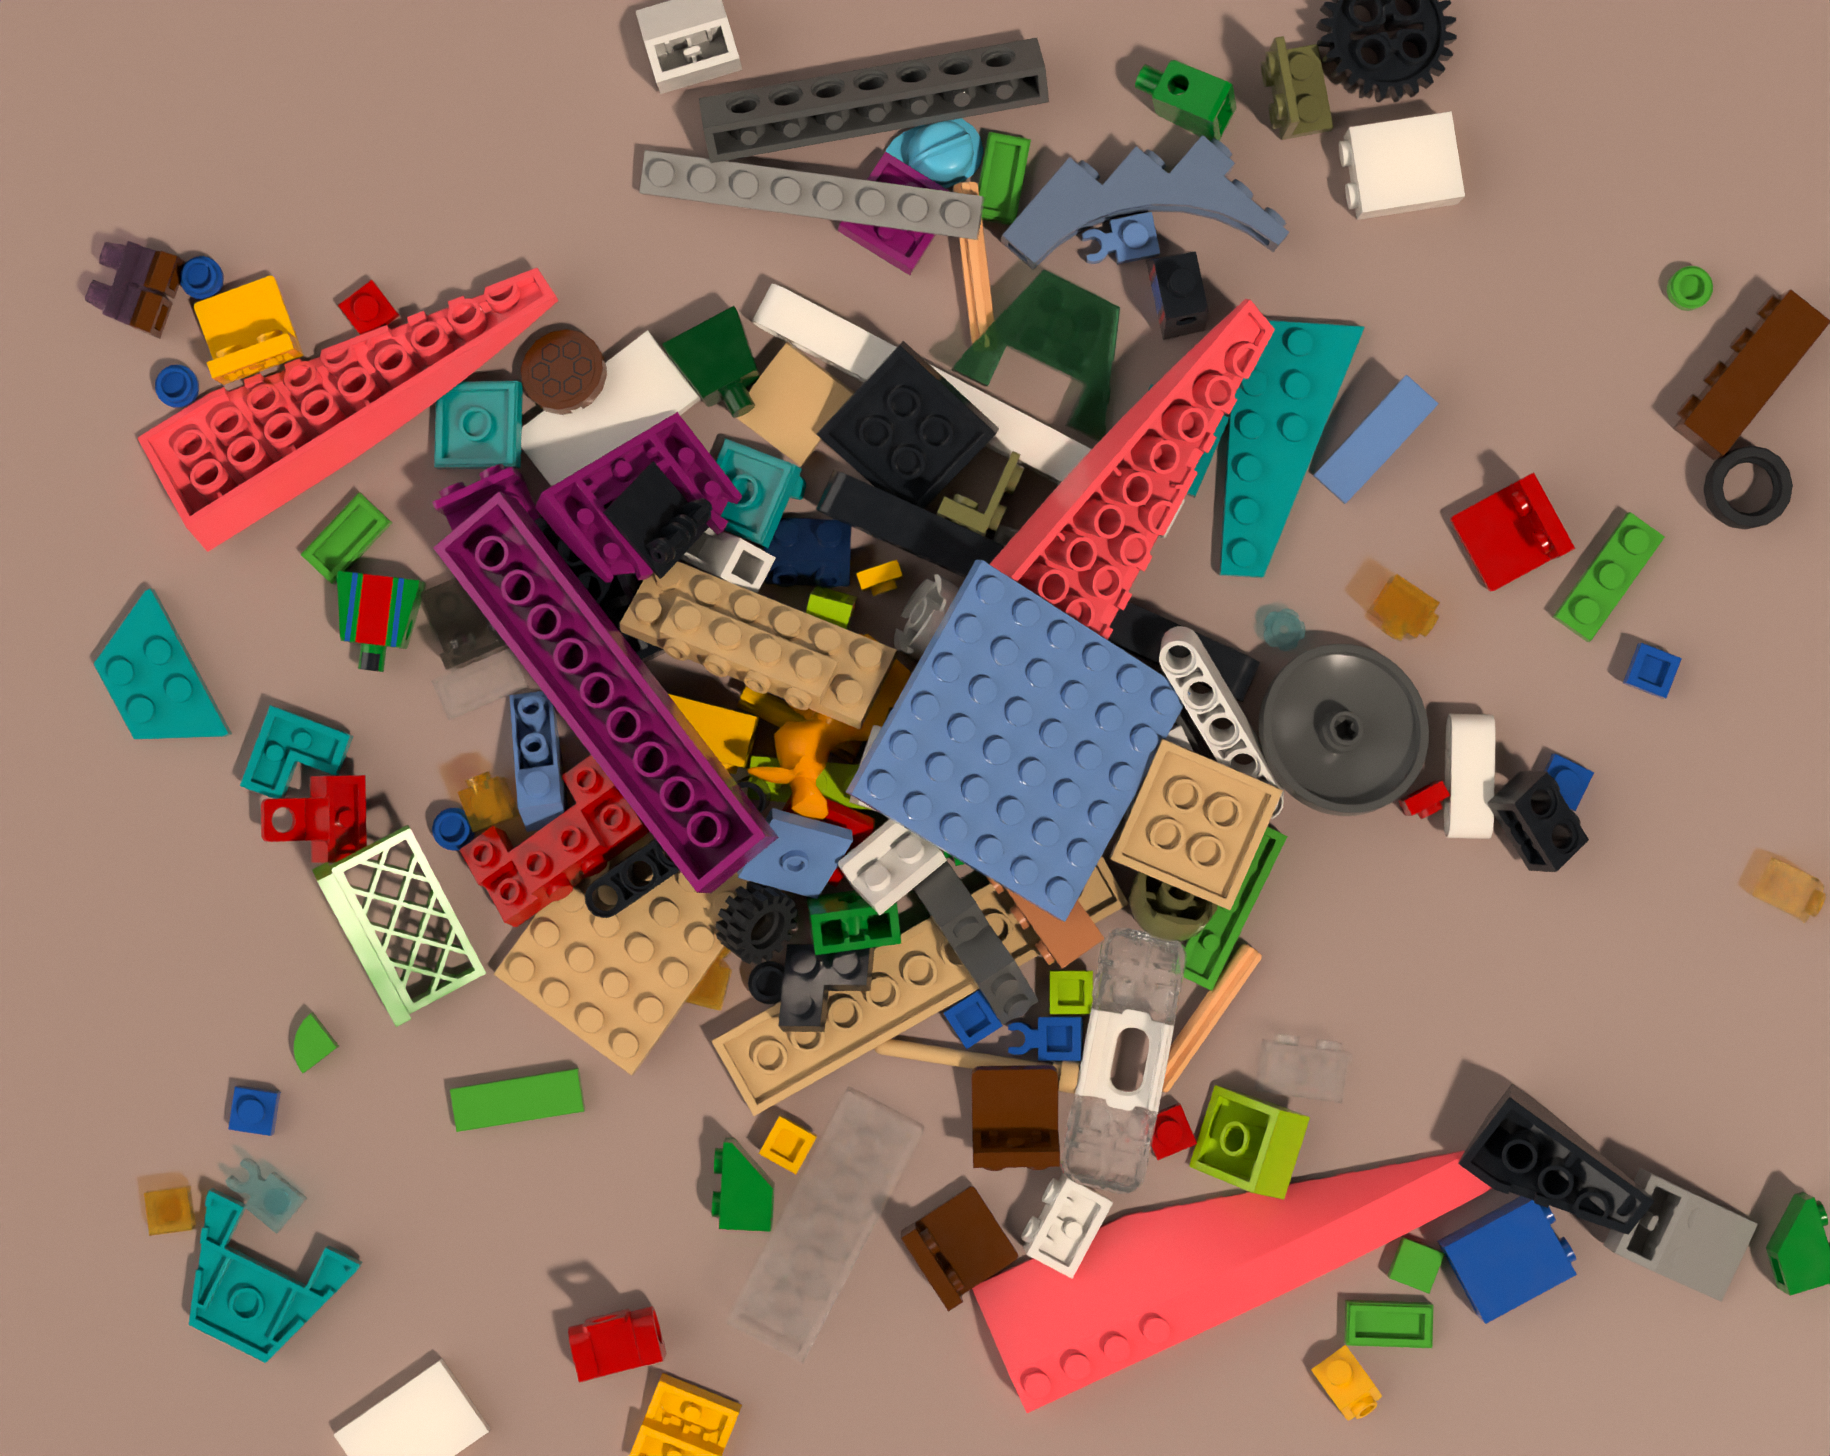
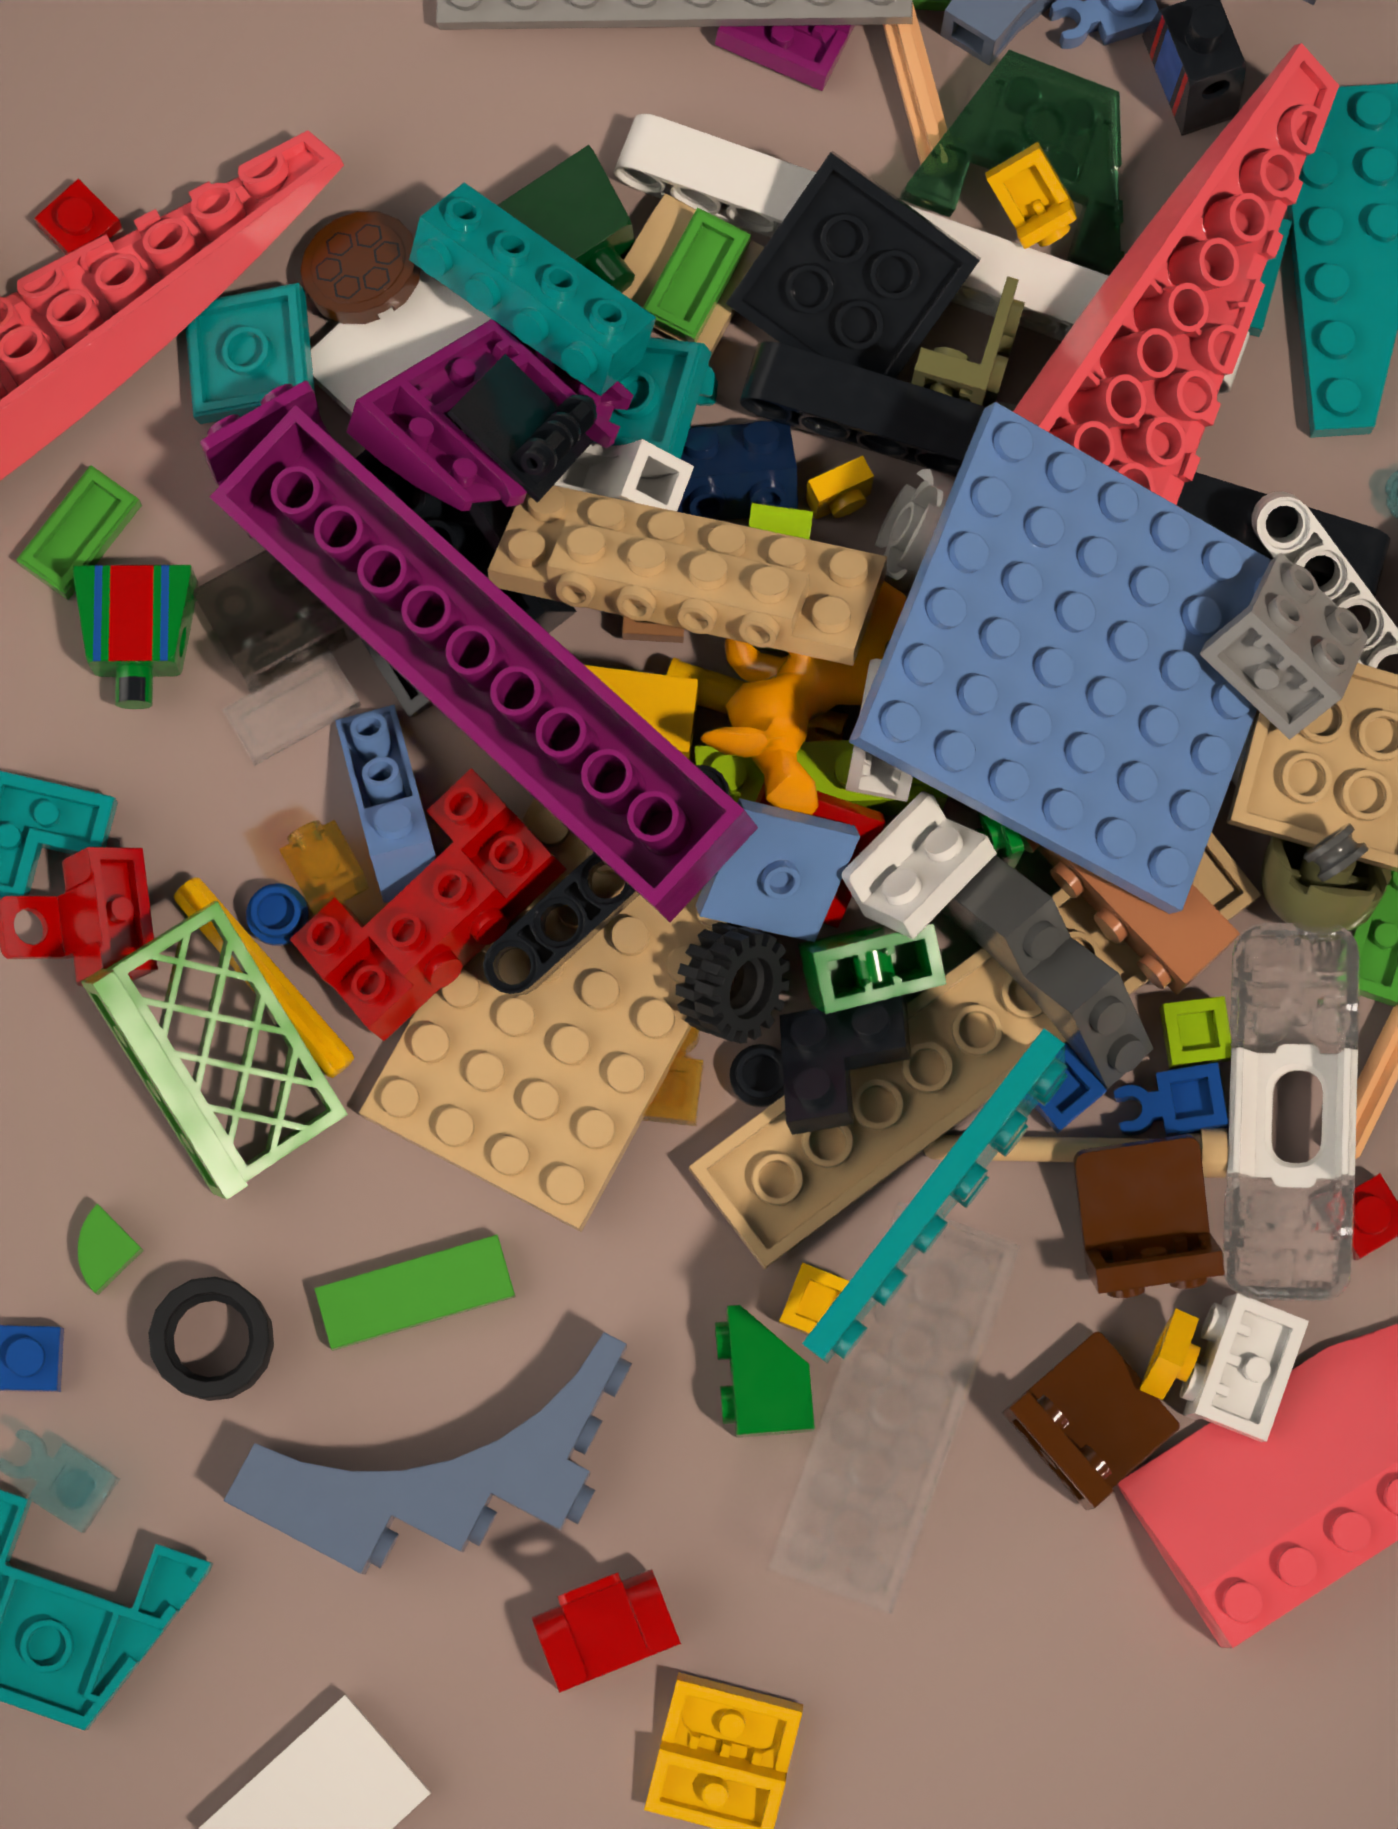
camera: 10 degrees left, 10 degrees down
(376, 1148) = (165, 1324): none -> black tyre
(454, 1241) = (530, 1468): none -> sand blue arch
(461, 901) = (322, 1042): none -> yellow axle
(678, 412) = (532, 288): none -> teal brick
(798, 410) = (697, 275): none -> bright green tile
(880, 1091) = (954, 1181): none -> teal wing
(1019, 1211) = (1172, 1355): none -> yellow plate
(1044, 384) = (1033, 197): none -> yellow bracket
(1168, 748) = (1288, 648): none -> light grey bracket
(1177, 894) = (1336, 852): none -> dark grey bush

